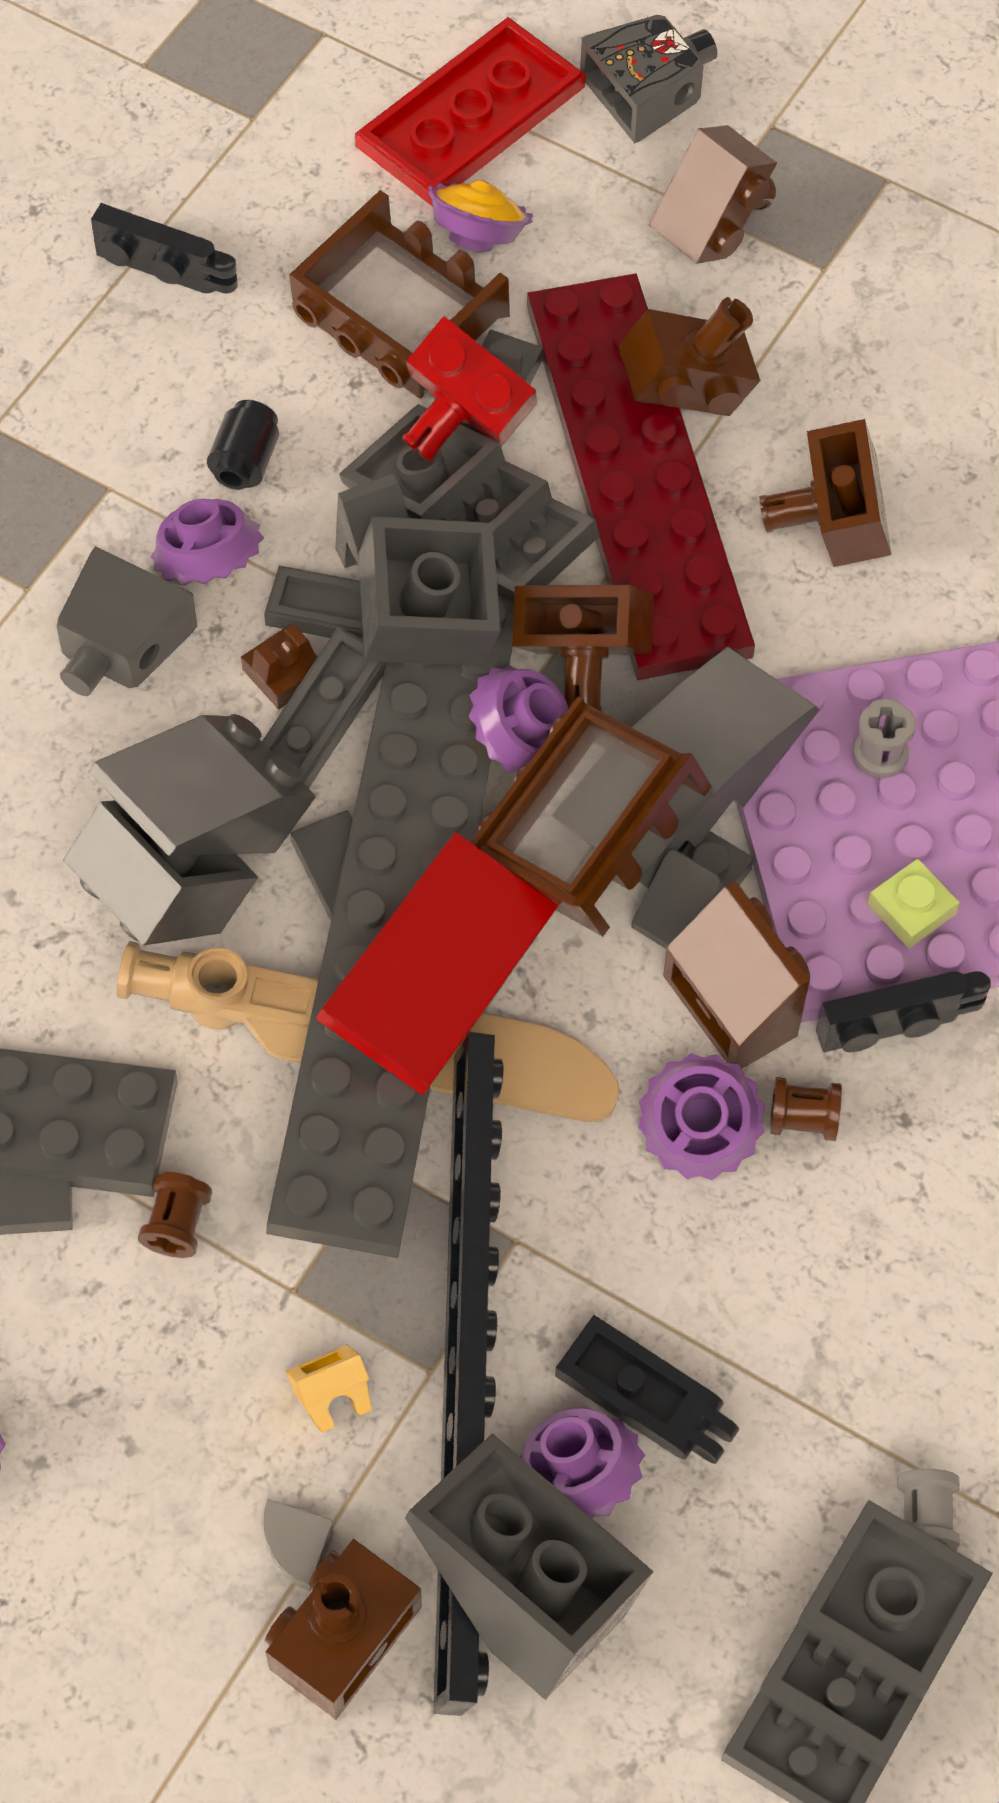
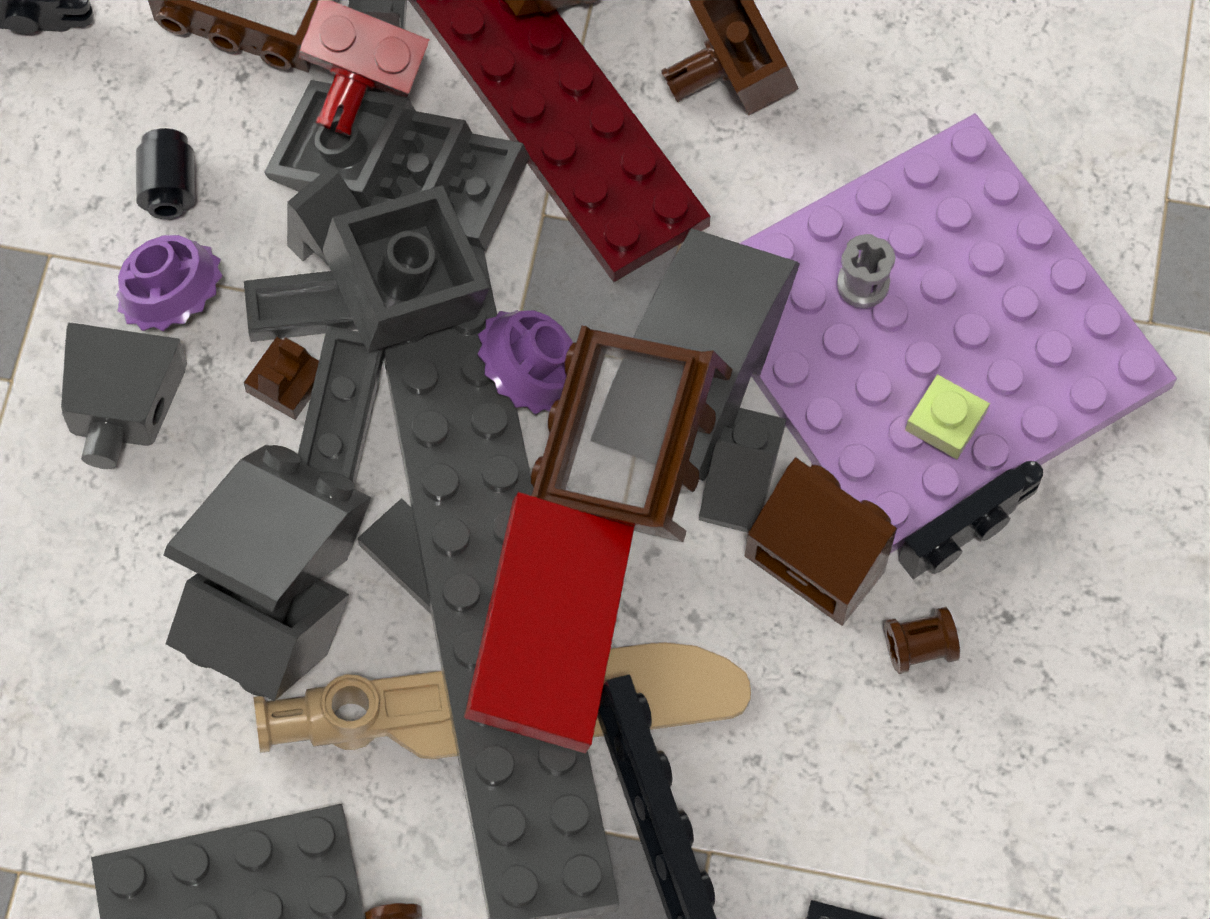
camera: 20 degrees left, 5 degrees up
(584, 628) = (555, 254): reddish brown brick -> none
(701, 1116) = (829, 664): medium lavender piece -> none

